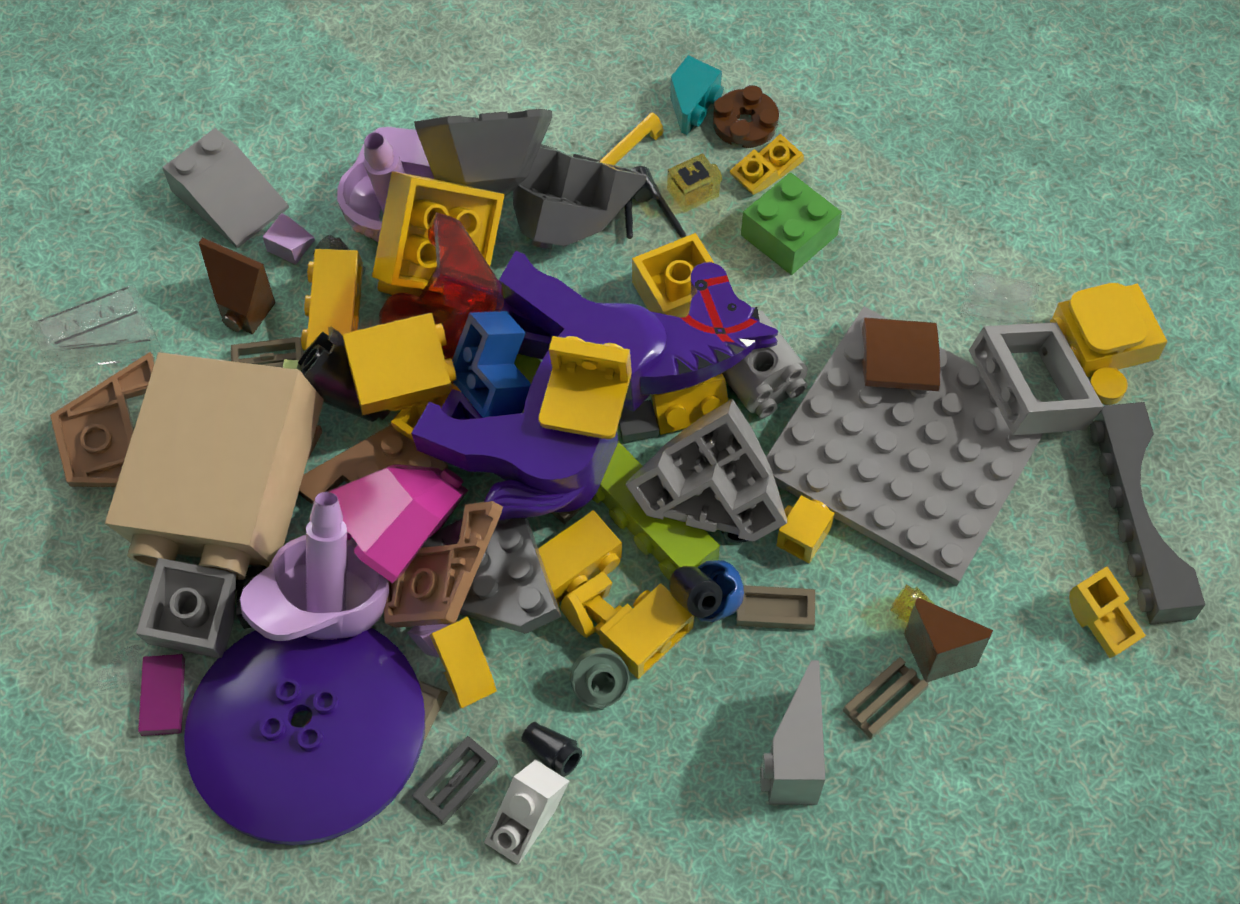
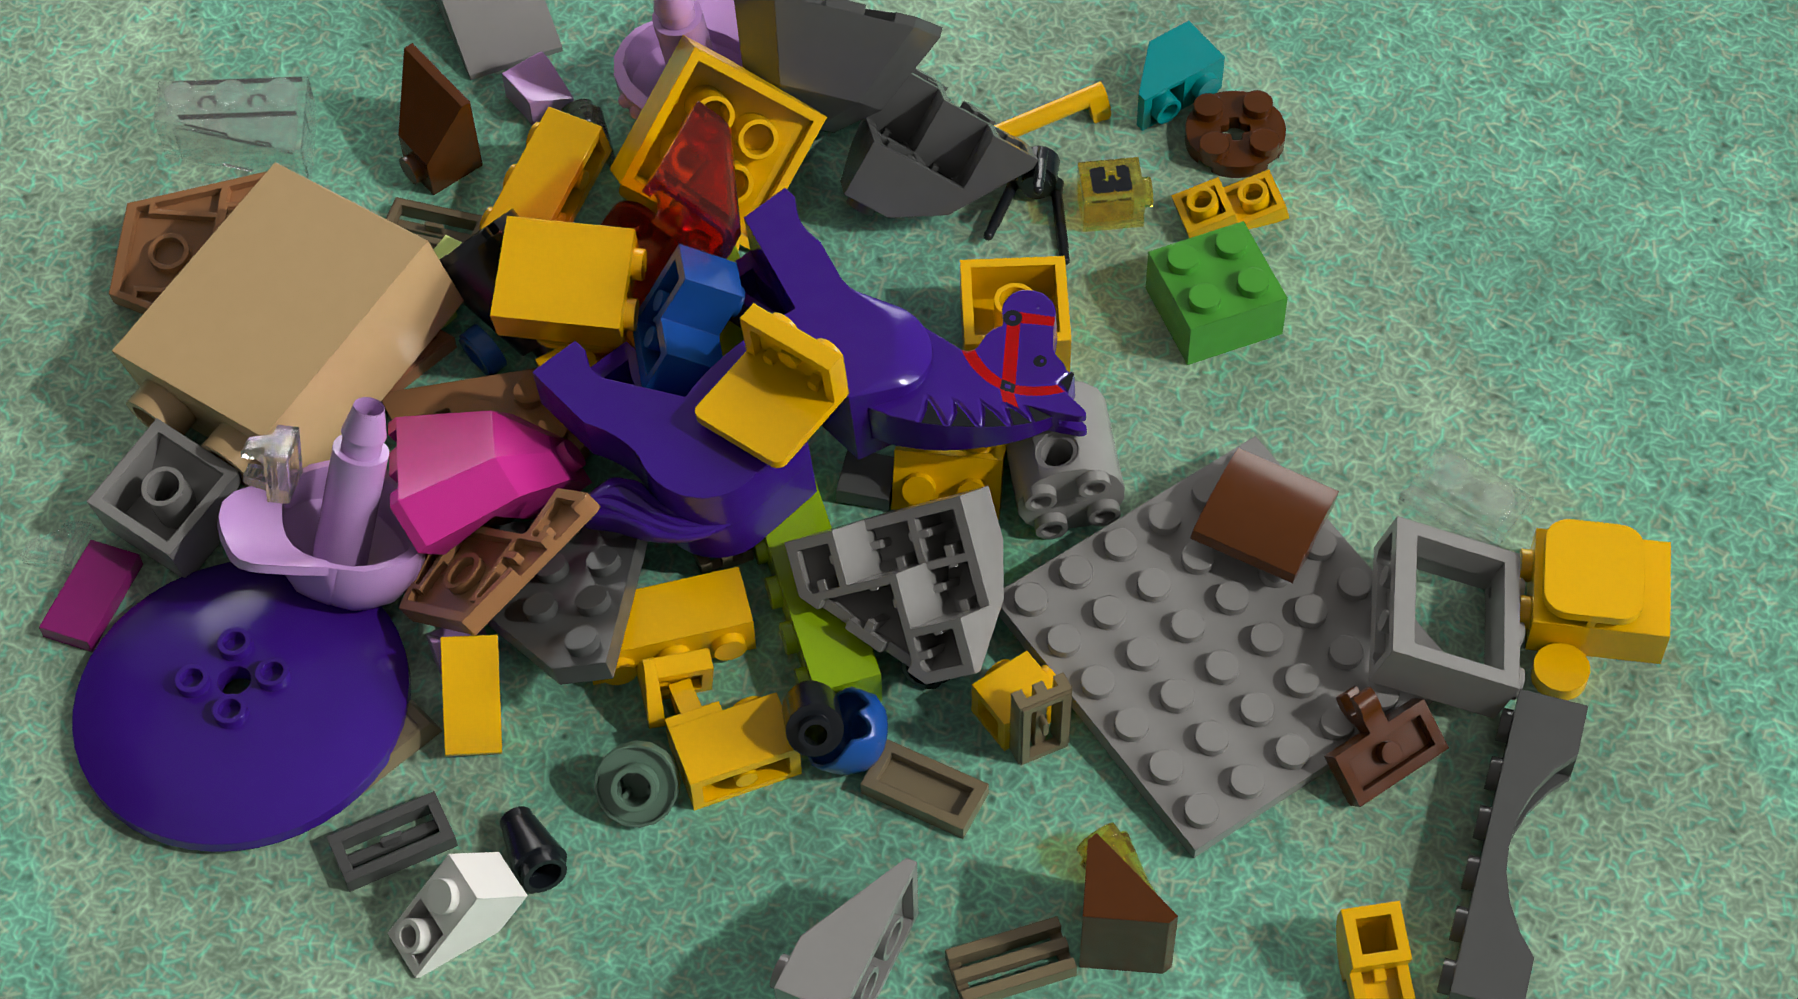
camera: 25 degrees right, 5 degrees down
(264, 558) = (280, 463): none -> clear tile
(345, 427) = (482, 350): none -> blue tile
(834, 532) = (1030, 723): none -> dark tan tile
(1038, 471) = (1385, 747): none -> reddish brown plate

